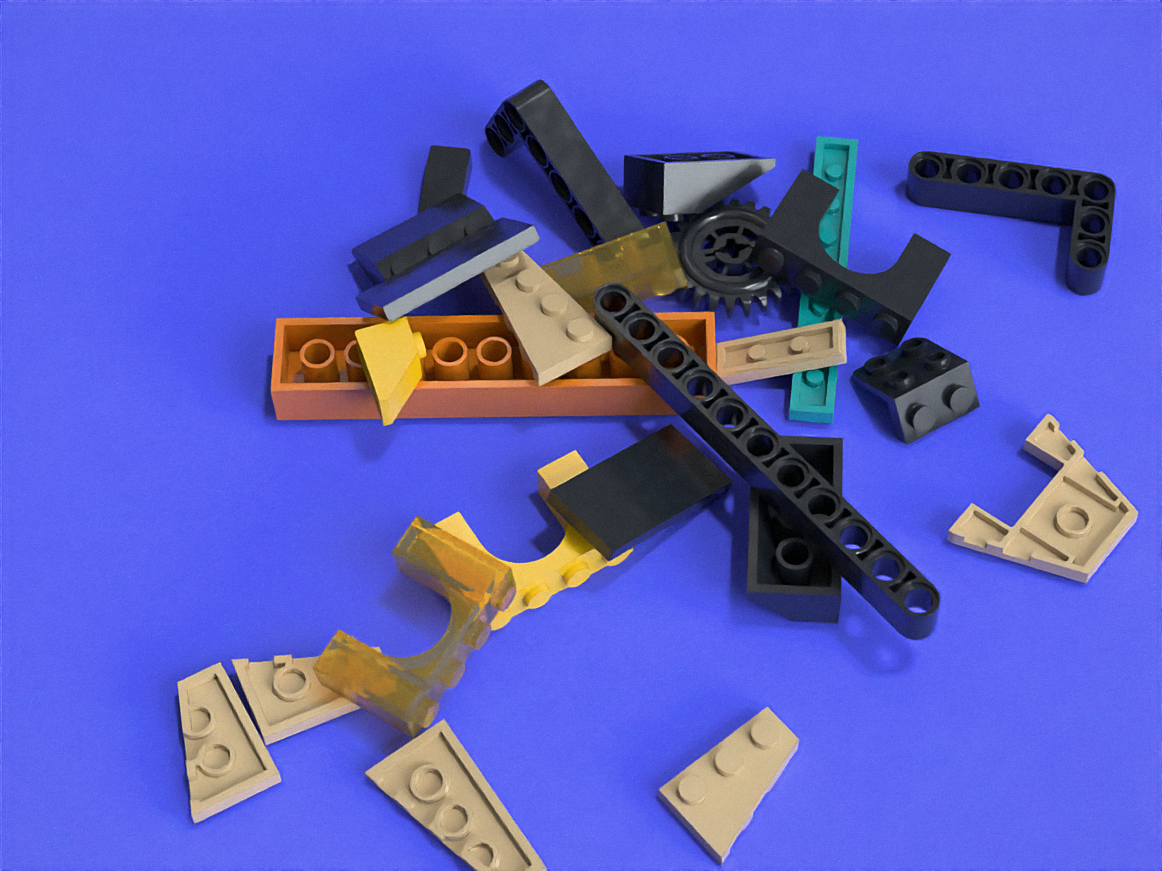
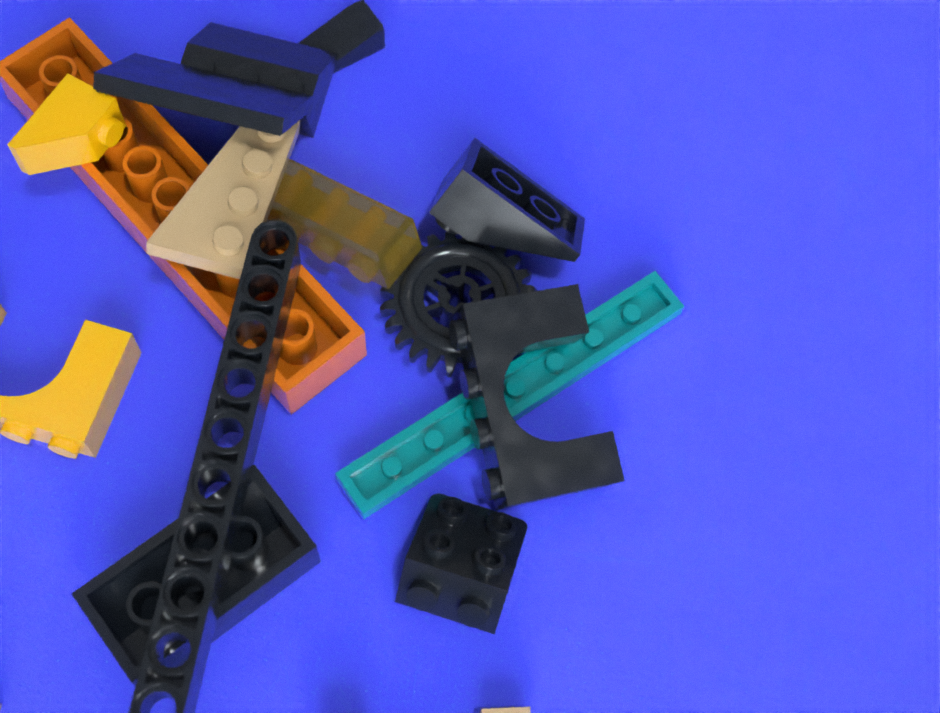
camera: 40 degrees right, 10 degrees up
(542, 125) = (428, 51): black beam -> none
(638, 492) = (113, 414): black tile -> none
(781, 352) = (391, 420): tan tile -> none
(1025, 193) = (760, 503): black beam -> none

